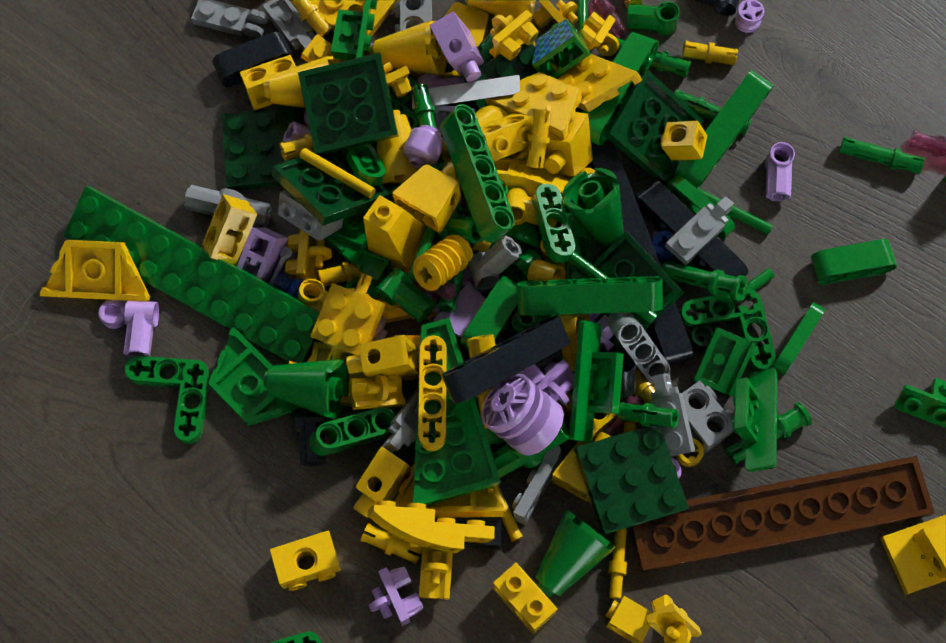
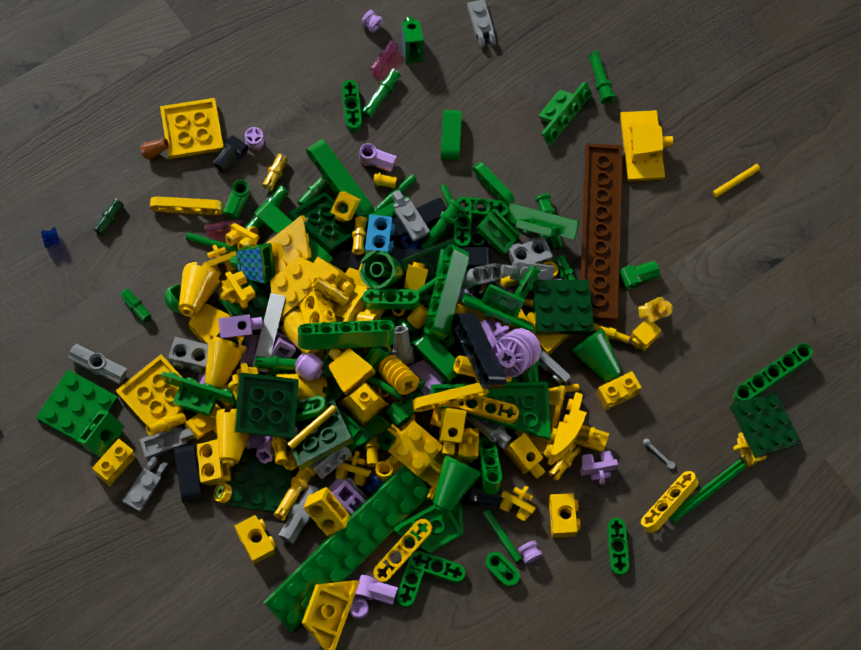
camera: 80 degrees left, 0 degrees up
(182, 146) = (250, 528): none -> yellow brick
(201, 347) = (400, 547): none -> yellow beam
(204, 491) = (504, 568): none -> green plate
(236, 106) = (222, 492): none -> yellow tile
(239, 524) = (530, 552): none -> lavender wheel
(258, 481) = (502, 536): none -> green bar
(268, 192) = (298, 484): none -> yellow pin
(313, 492) = (510, 499): none -> yellow hips
(423, 333) = (449, 397): none -> yellow beam
(606, 254) = (415, 276): none -> yellow brick
(649, 173) = (359, 235): none -> yellow pin
(651, 189) = (376, 236): none -> dark azure brick
(694, 477) = (566, 272): none -> green pin
(723, 582) = (635, 276): none -> green piece
(747, 185) = (385, 181): none -> yellow pin
(855, 114) = (348, 112): none -> green beam

